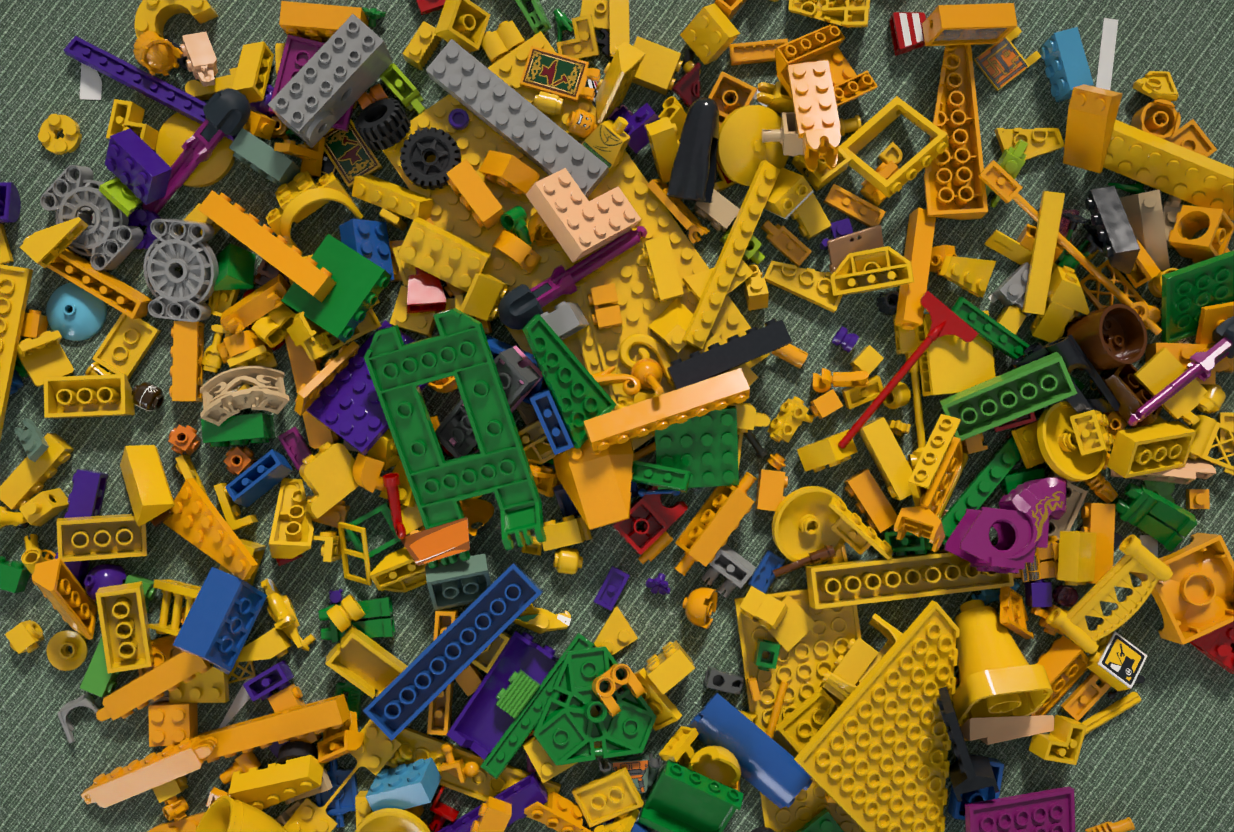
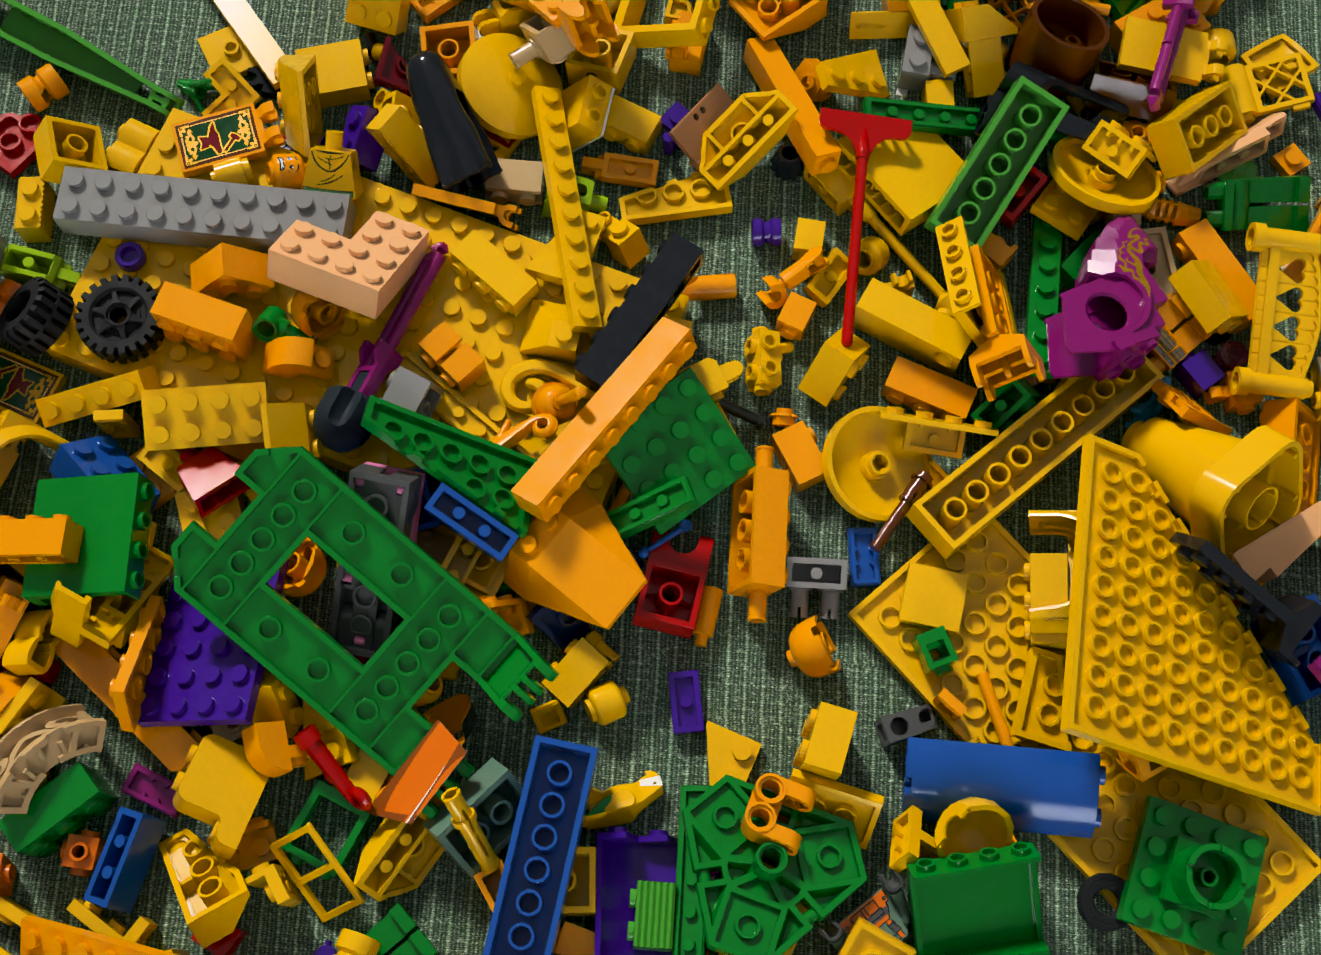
camera: 30 degrees left, 15 degrees down
(446, 589) = (465, 820): none -> yellow pin
(658, 584) = (741, 659): dark purple plant -> none
(763, 607) = (891, 593): yellow brick -> none
(854, 206) = (672, 86): light orange plate -> none

